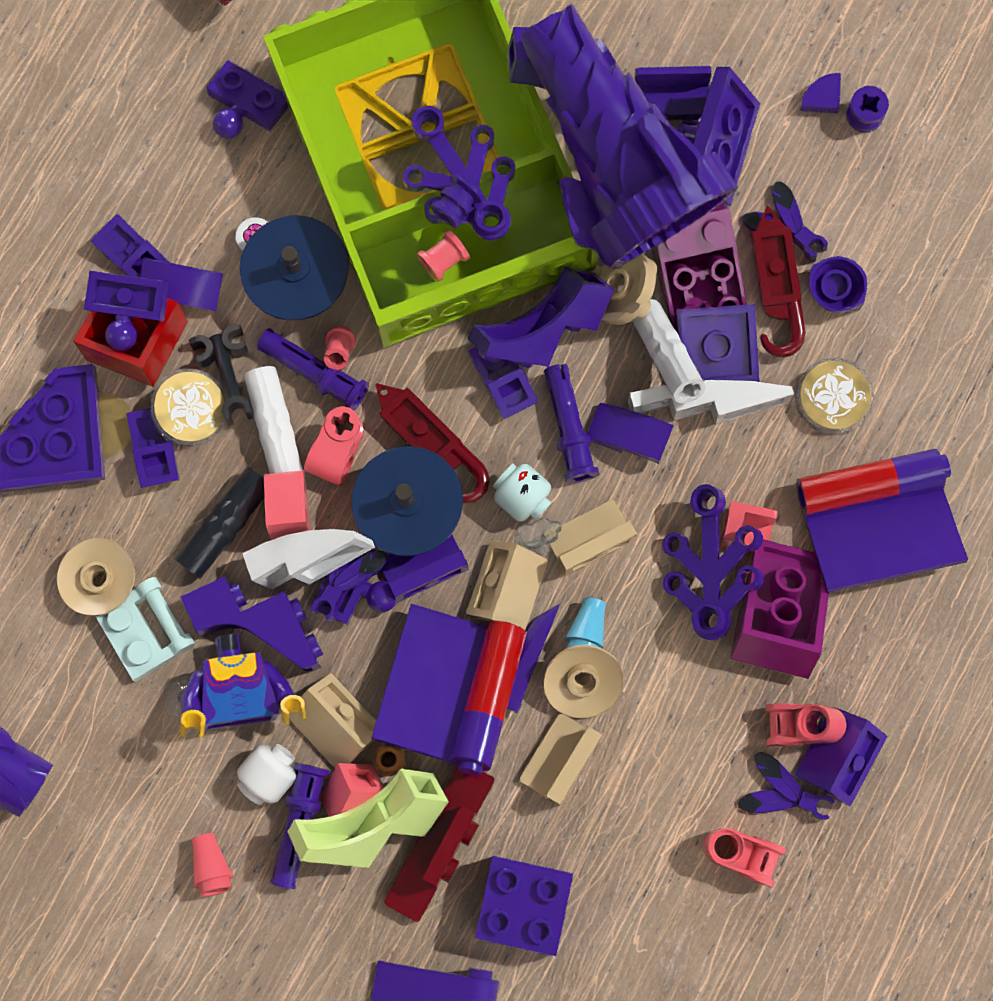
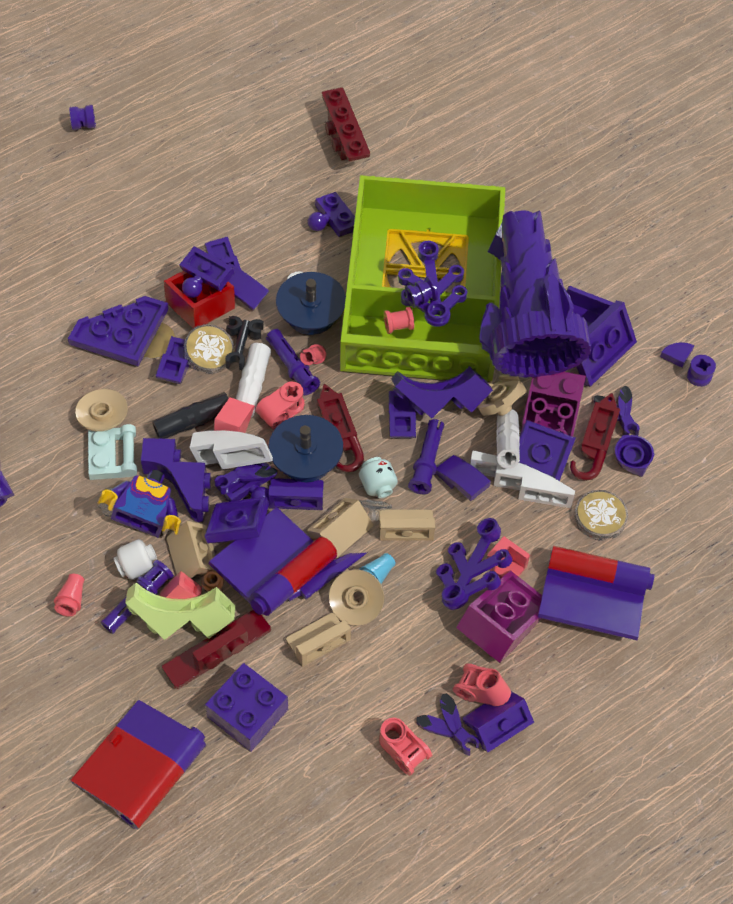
camera: 20 degrees right, 20 degrees down
(372, 653) = (237, 520): none -> dark purple plate

